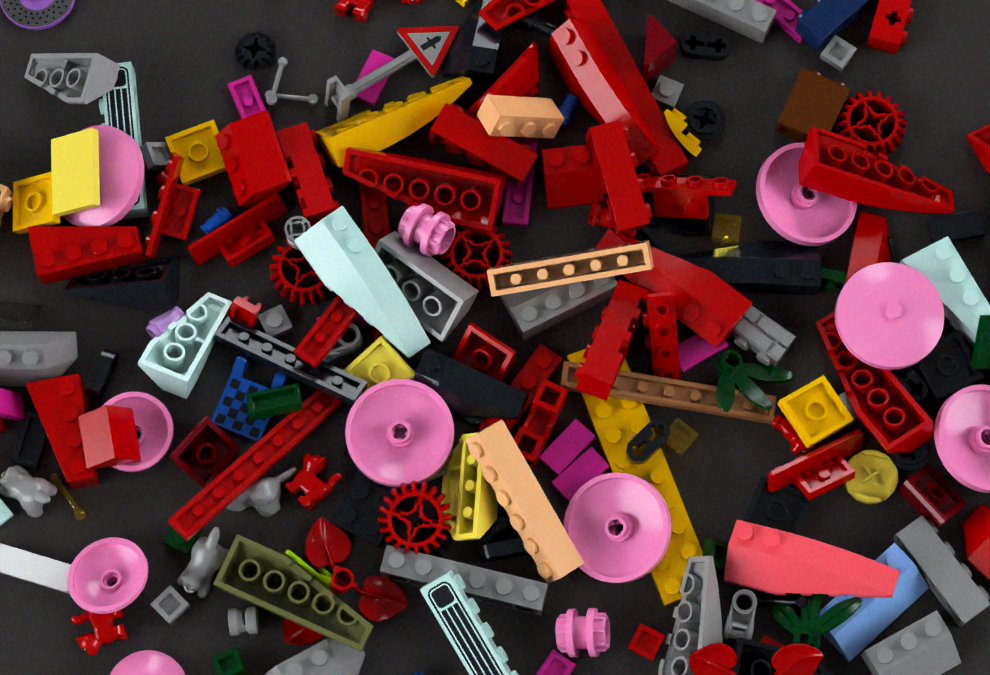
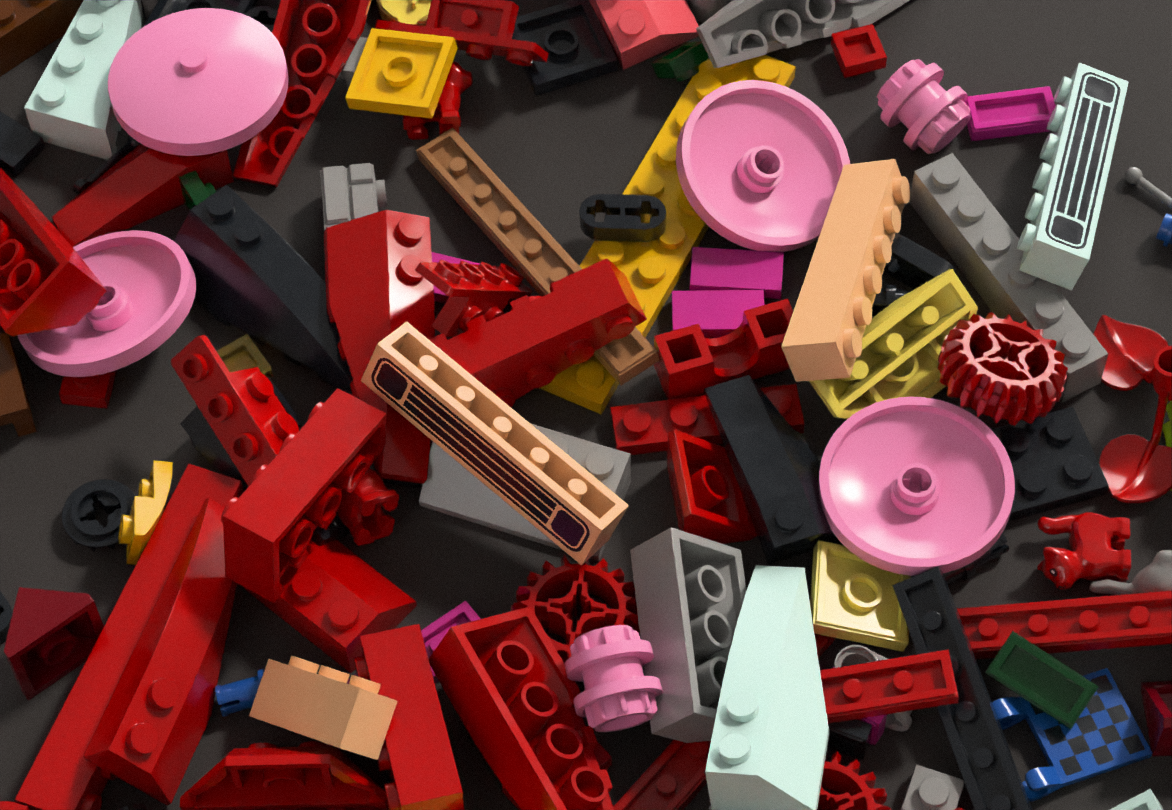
camera: 135 degrees left, 15 degrees down
(667, 92) = (102, 586): light grey plate -> none
(680, 437) = (568, 200): clear yellow plate -> none
(740, 374) = (438, 177): dark green plant -> none

